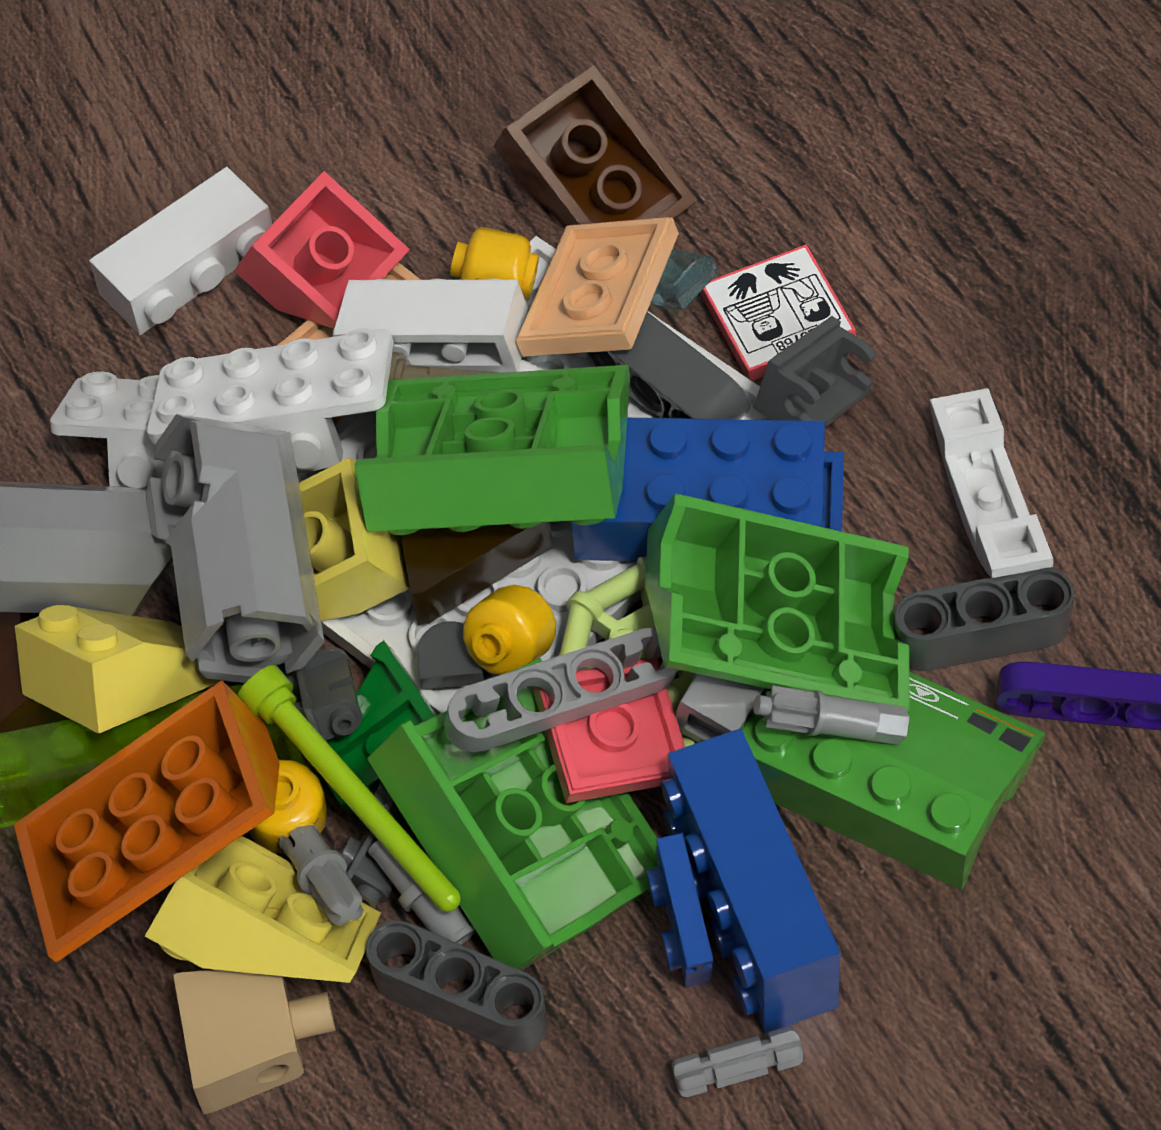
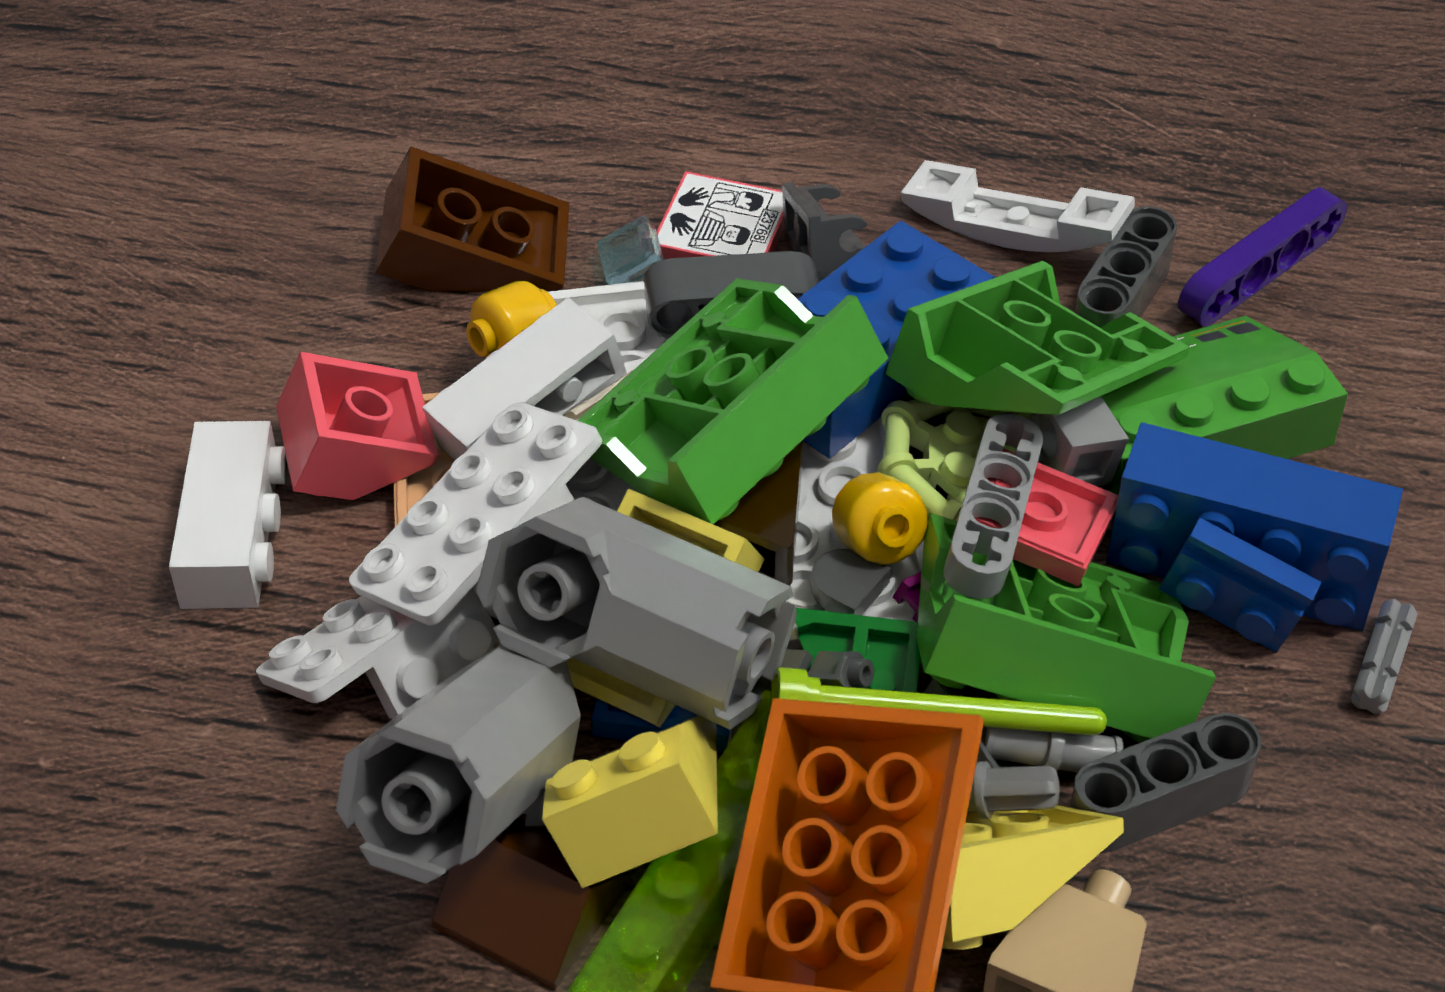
camera: 55 degrees left, 10 degrees down
(597, 287) = (616, 271): light nougat tile -> none
(832, 715) = (1165, 377): light grey piece -> none

